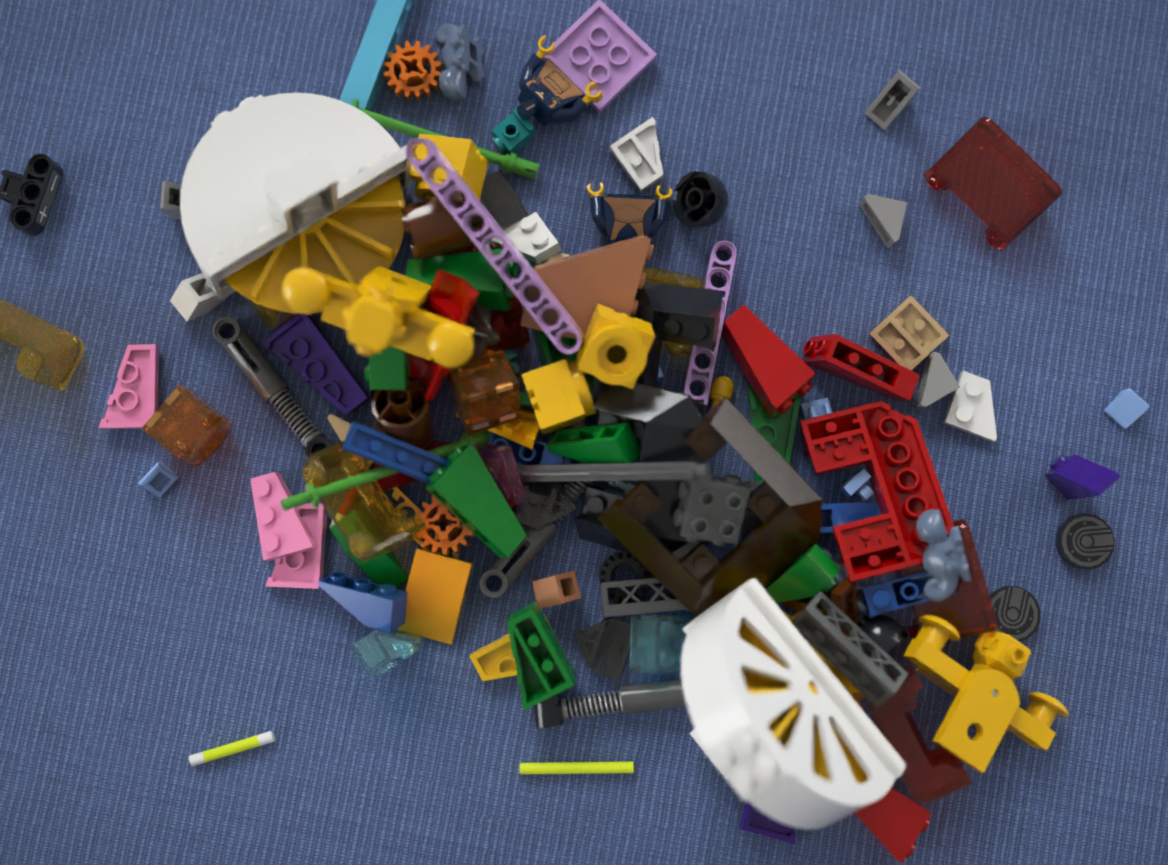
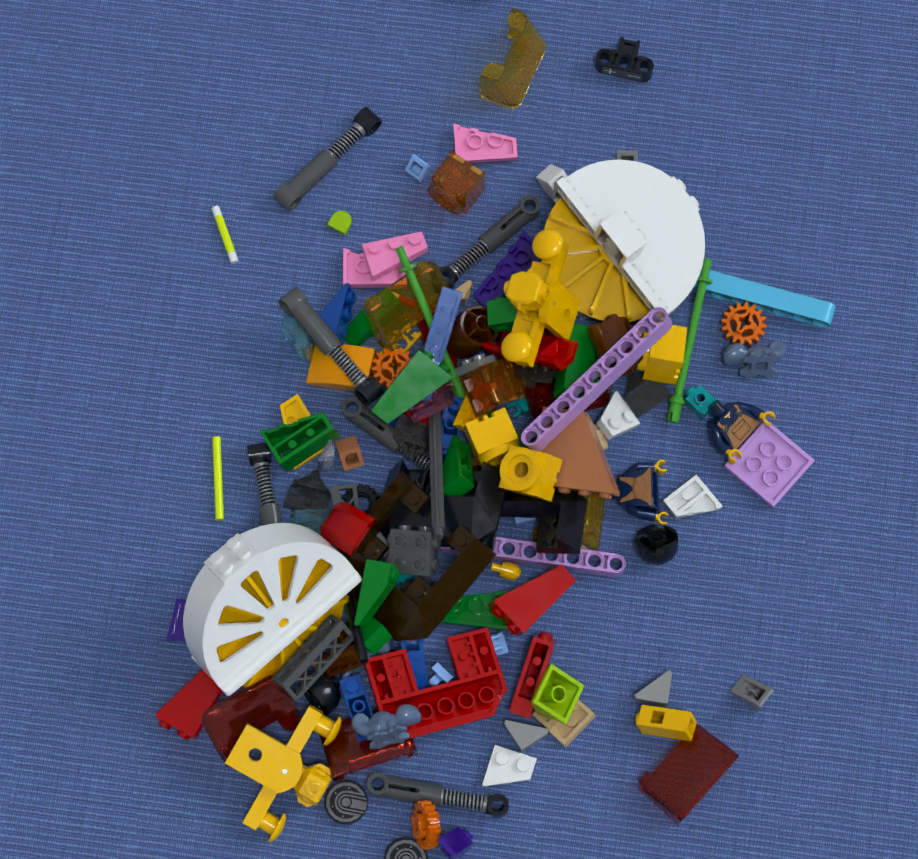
camera: 90 degrees right, 10 degrees down
(179, 653) = (291, 193): none -> piece
(227, 588) = (340, 222): none -> lime tile
(355, 652) = (296, 305): none -> piece
(450, 410) = (473, 363): none -> light grey plate
(564, 618) = (326, 459): none -> clear slope
(669, 596) = (346, 527): none -> red slope
(754, 557) = (376, 585): none -> green slope
(818, 588) = (358, 637): none -> black bar
(892, 336) = (556, 695): none -> lime slope
(931, 206) = (666, 722): none -> yellow brick
(1008, 499) = (436, 793): none -> piece
(1053, 512) = (425, 824): none -> orange gear

